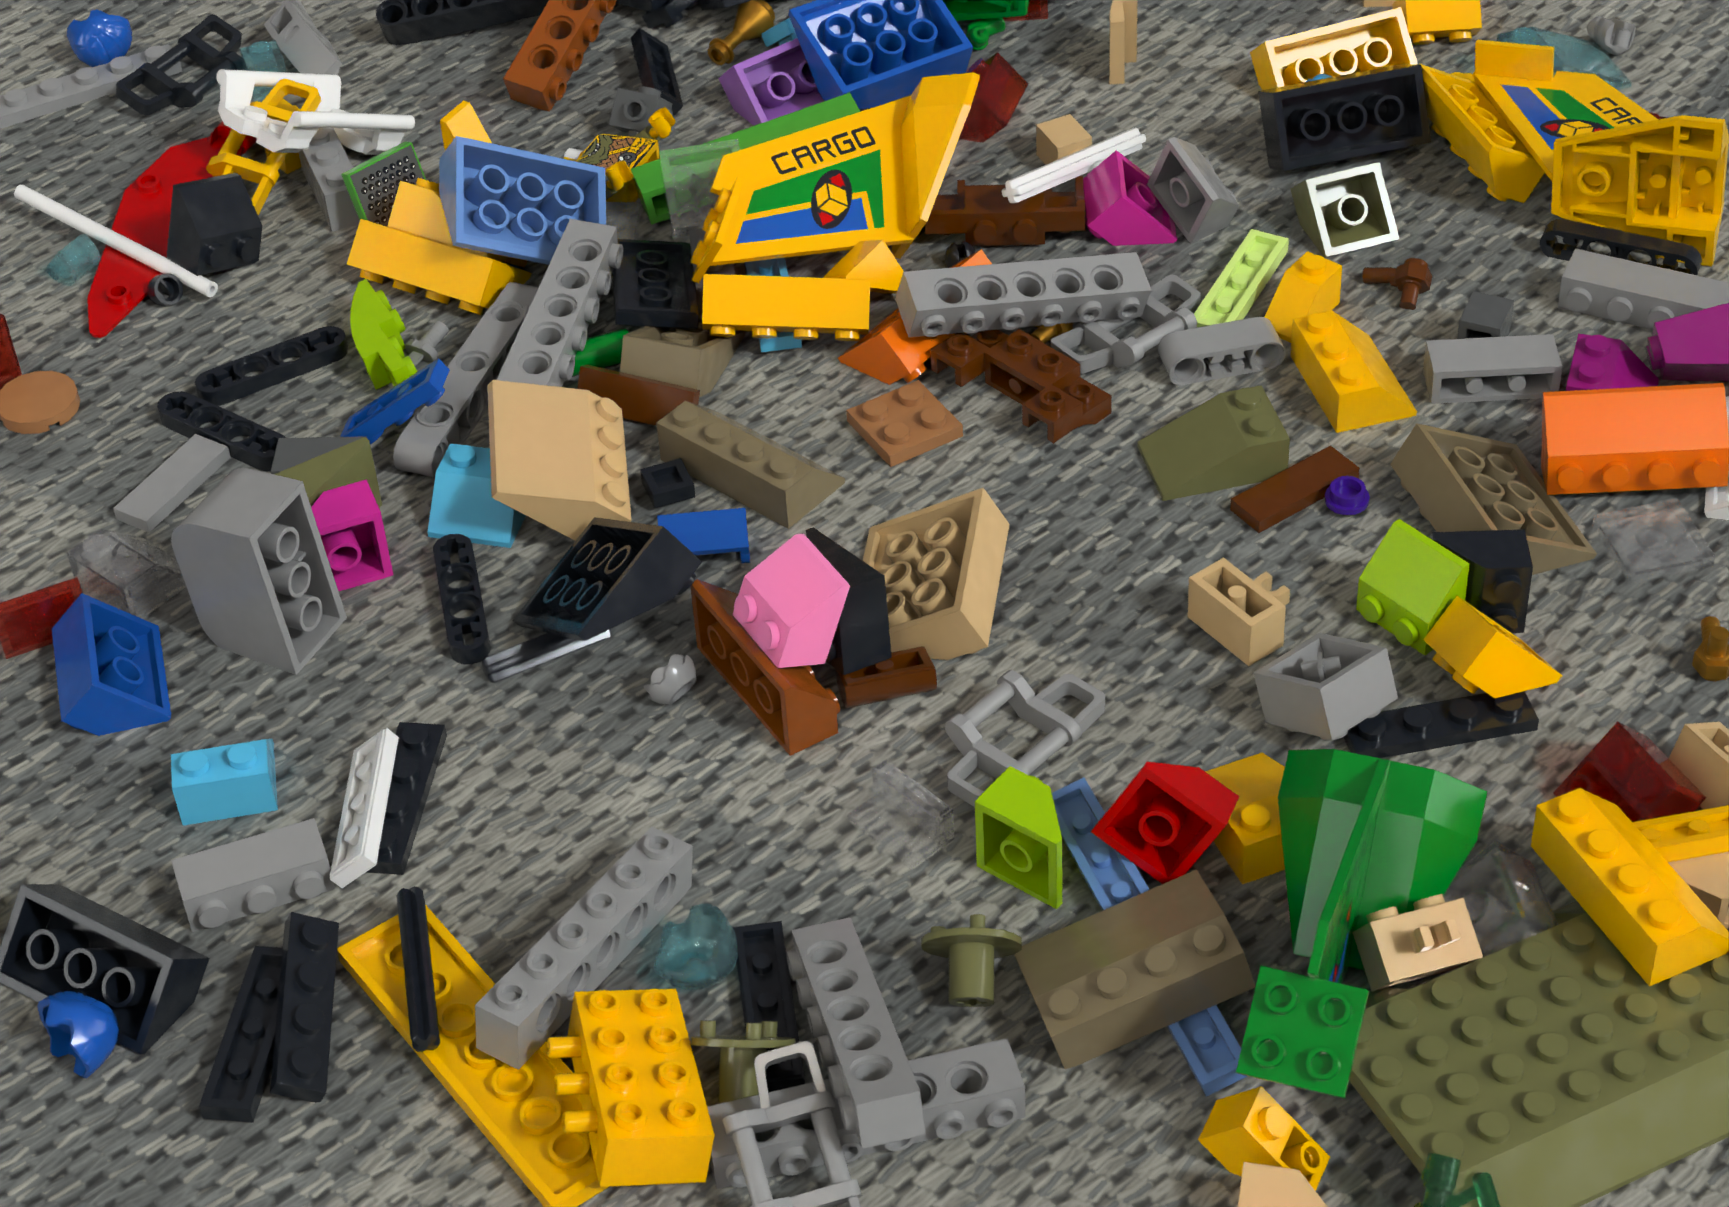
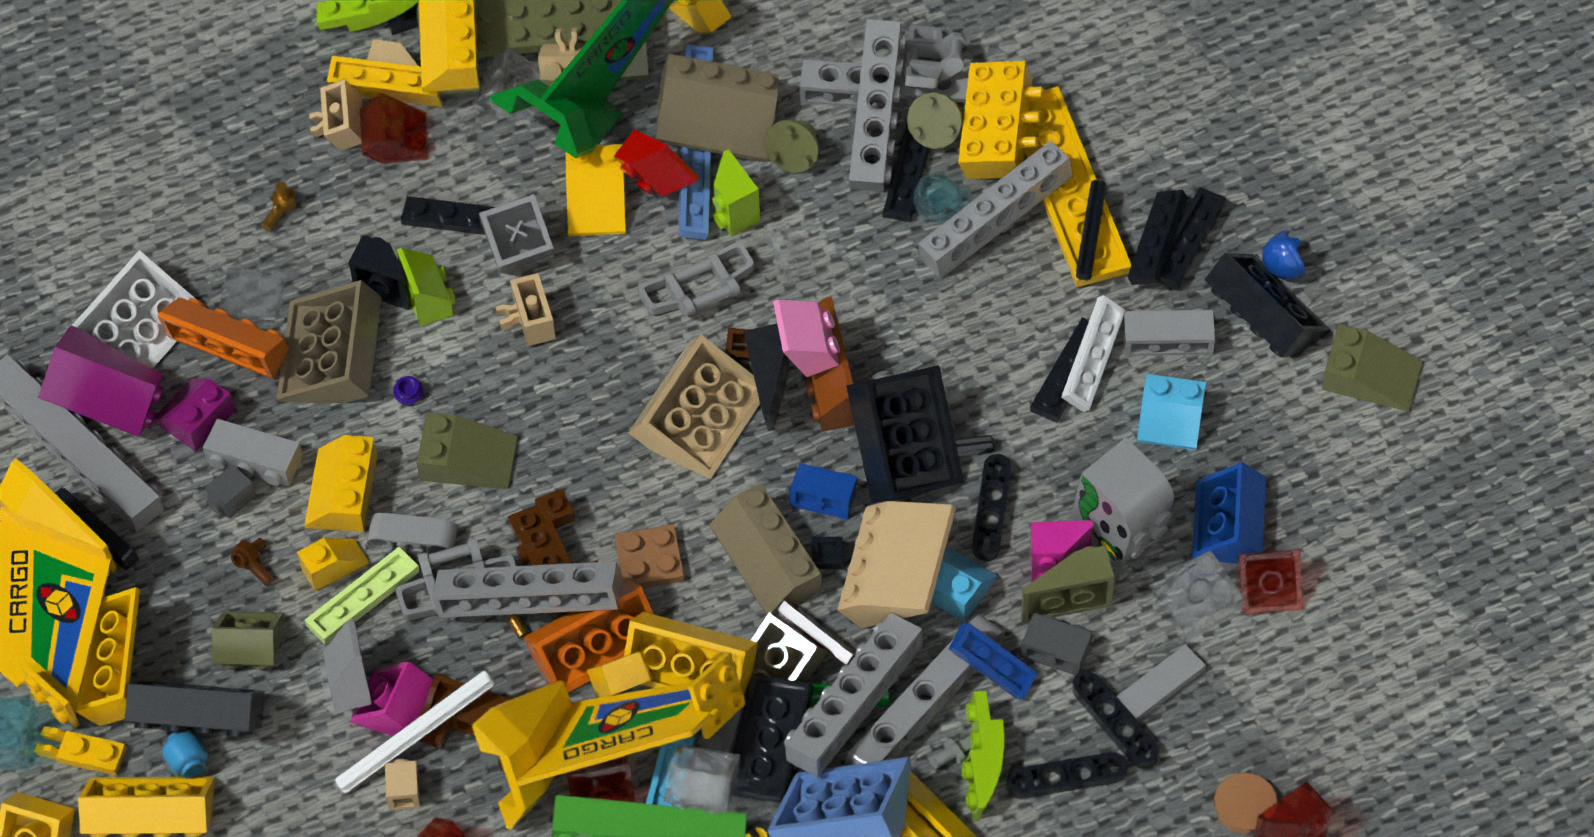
camera: 160 degrees left, 15 degrees up
(1291, 489) = (411, 415): reddish brown tile -> none
(1485, 653) = (411, 224): yellow slope -> none

